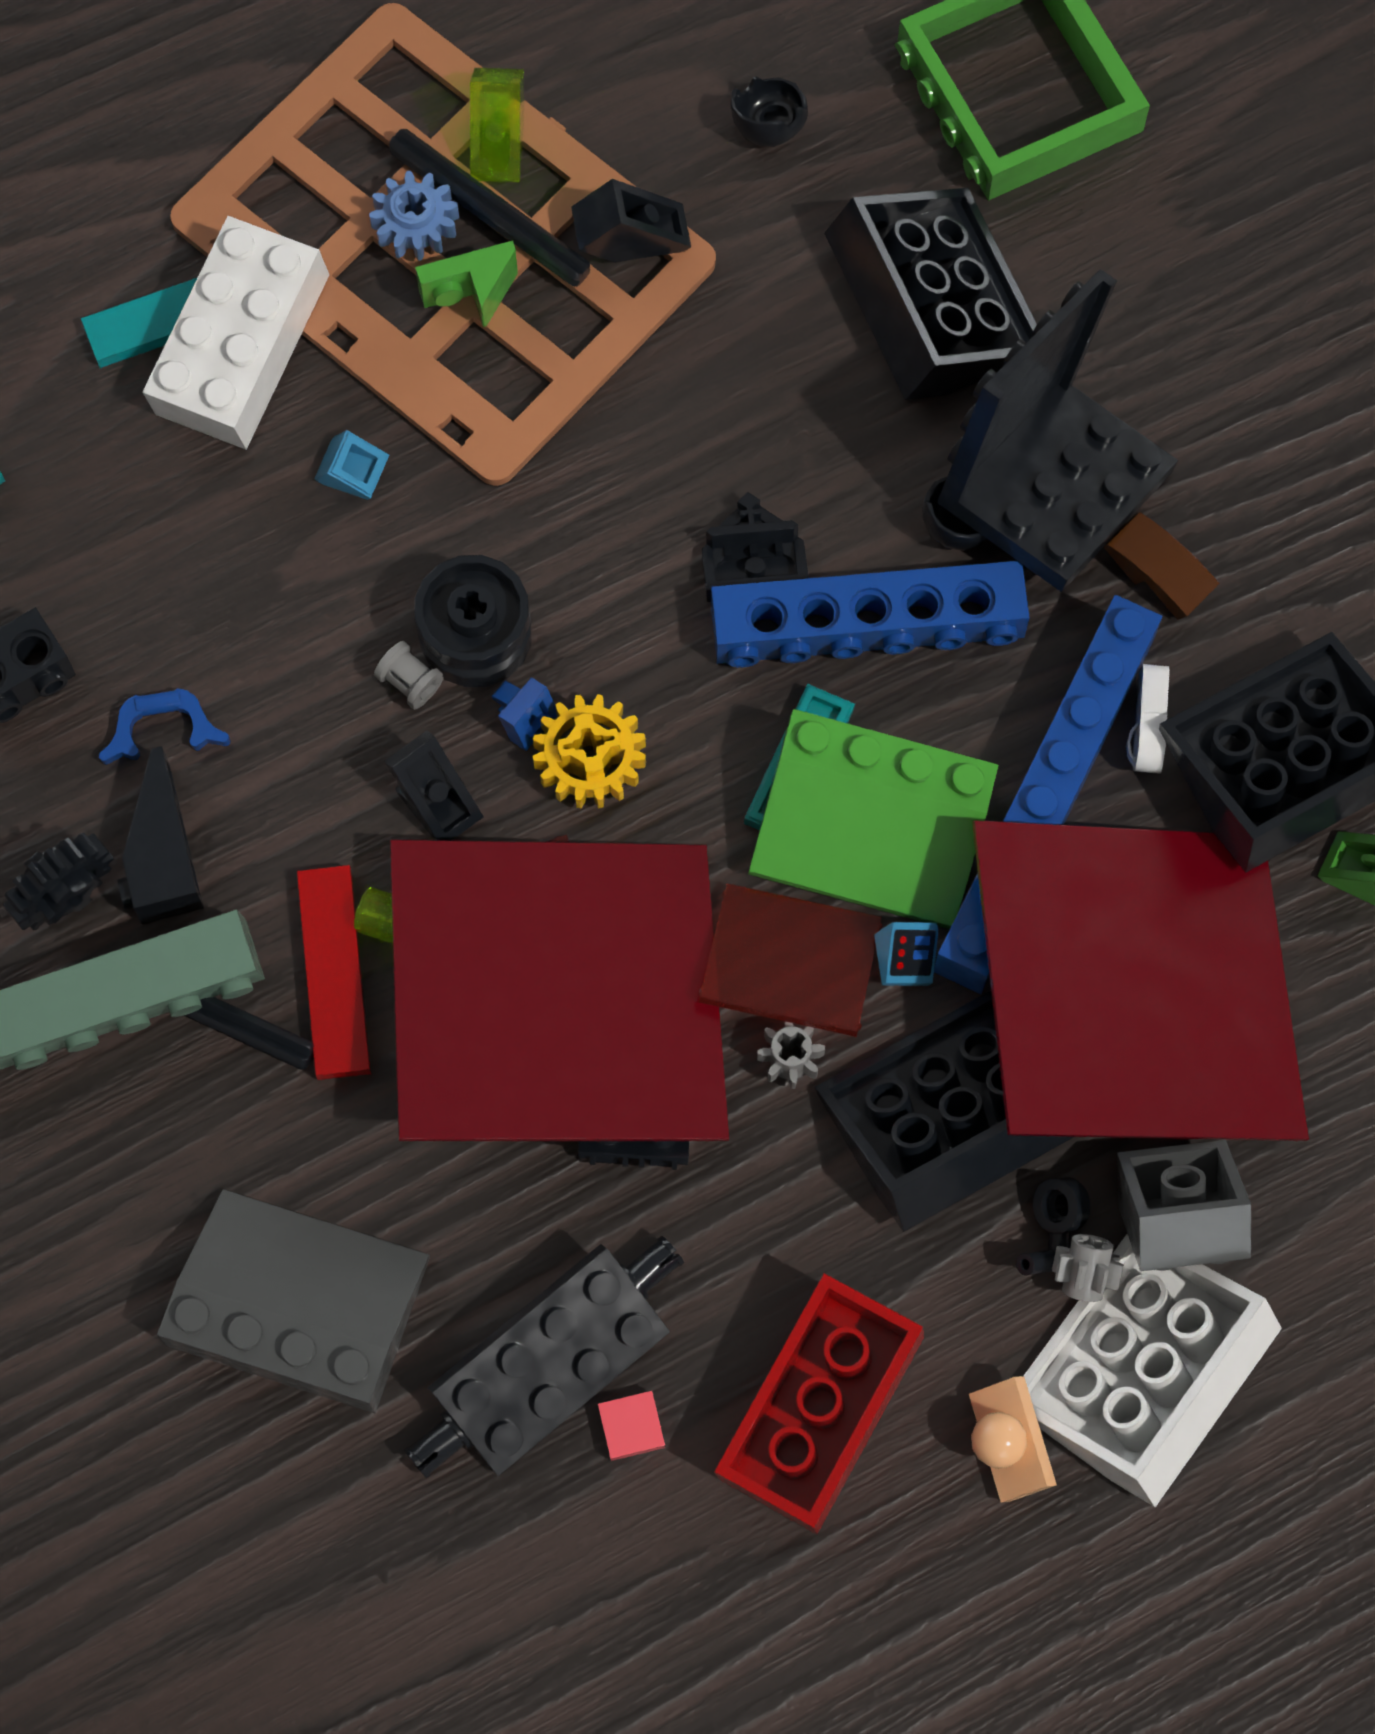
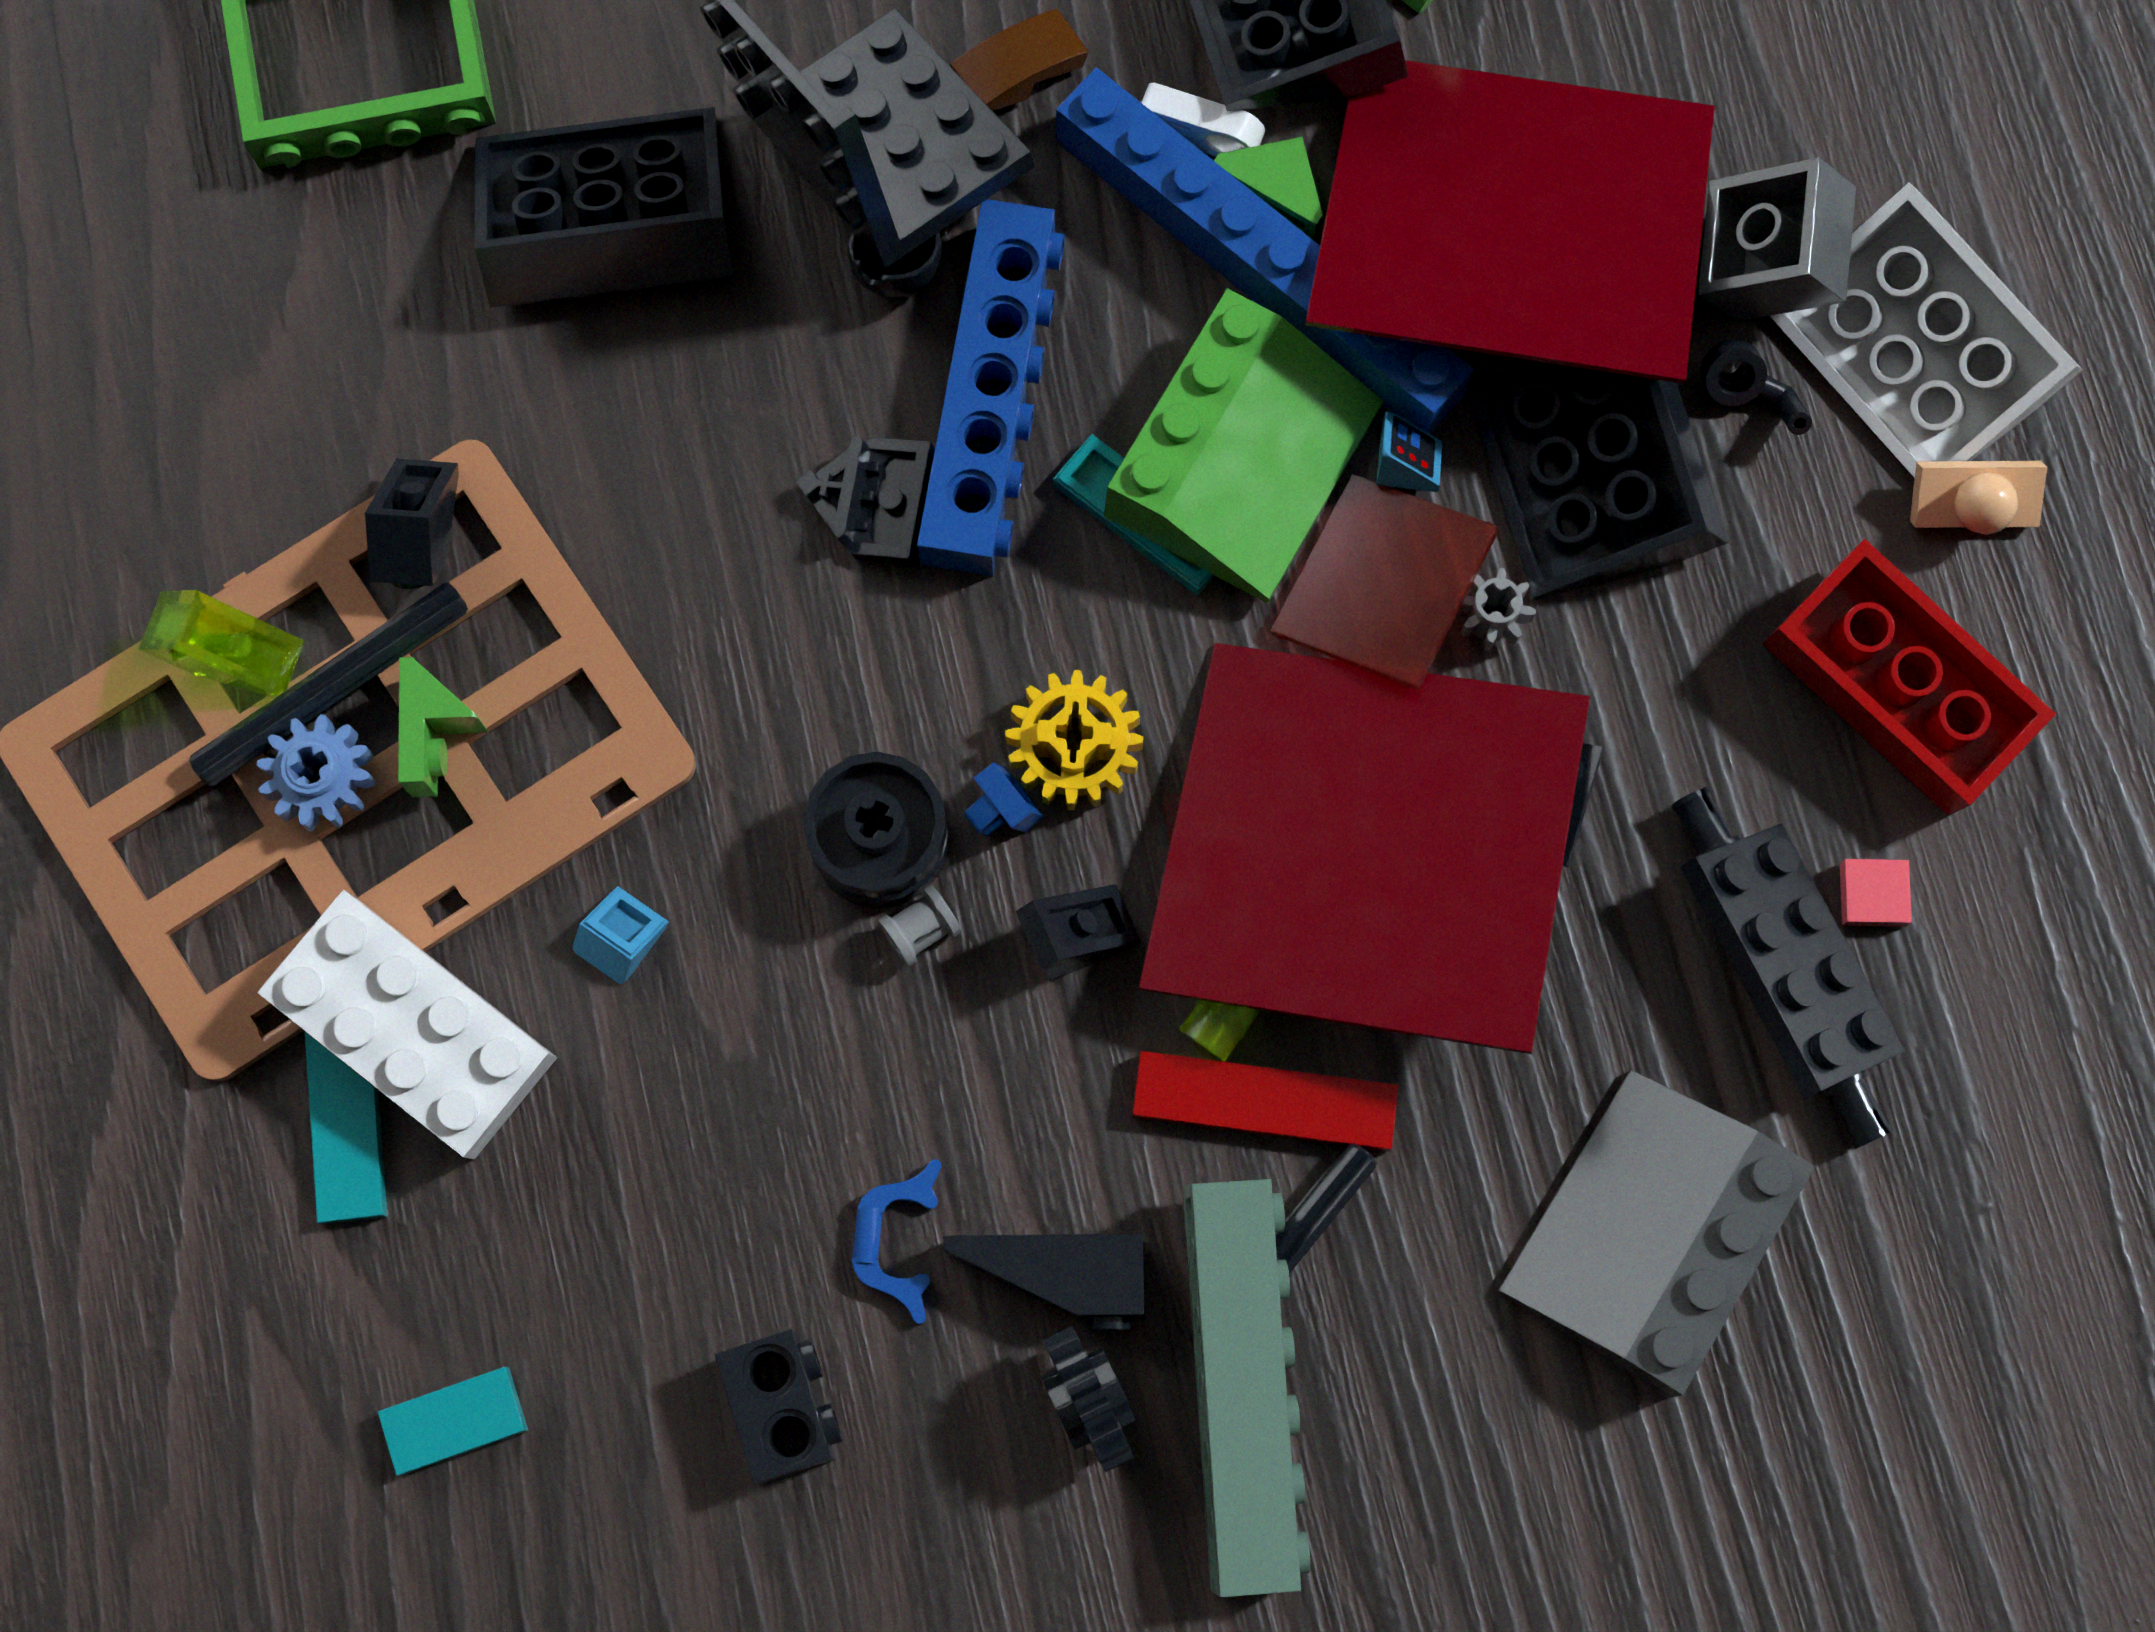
camera: 75 degrees left, 5 degrees up
(769, 111) = (306, 326): black hair -> none
(1087, 1268) = (1816, 361): light grey gear -> none
(1118, 788) = (1281, 178): none -> bright green slope

